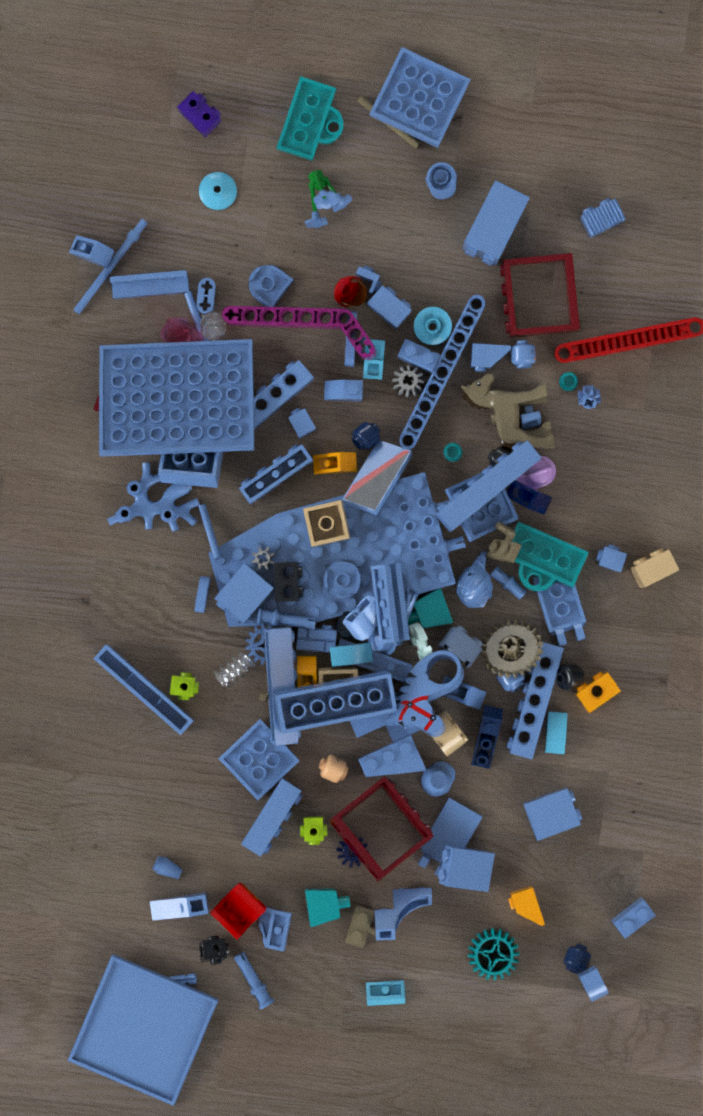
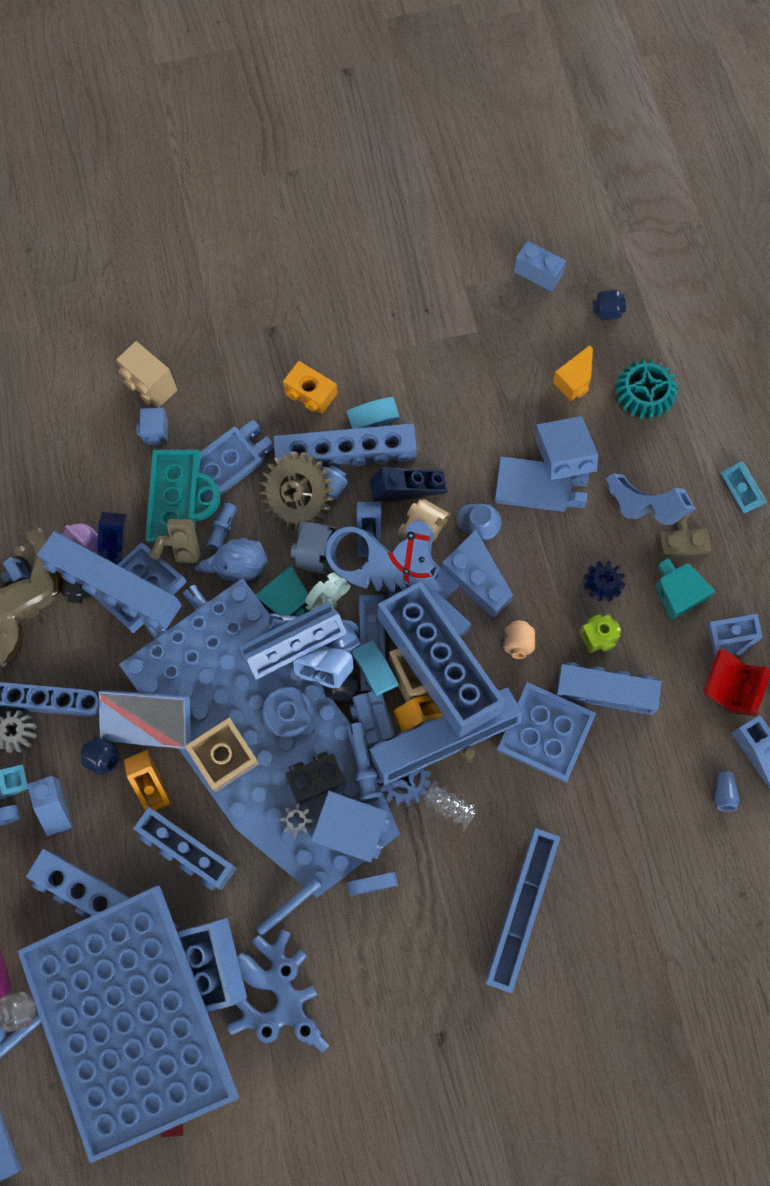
camera: 110 degrees left, 15 degrees down
(176, 686) = (493, 869): lime brick -> none
(179, 330) = (35, 1056): clear pink piece -> none
(301, 422) = (108, 843): medium blue brick -> none
(355, 845) = (600, 569): dark red window -> none
(452, 452) = (87, 647): teal plate -> none
(552, 813) = (464, 385): medium blue brick -> none
(569, 677) = (304, 419): black head -> none
(593, 983) = (629, 274): medium blue brick -> none

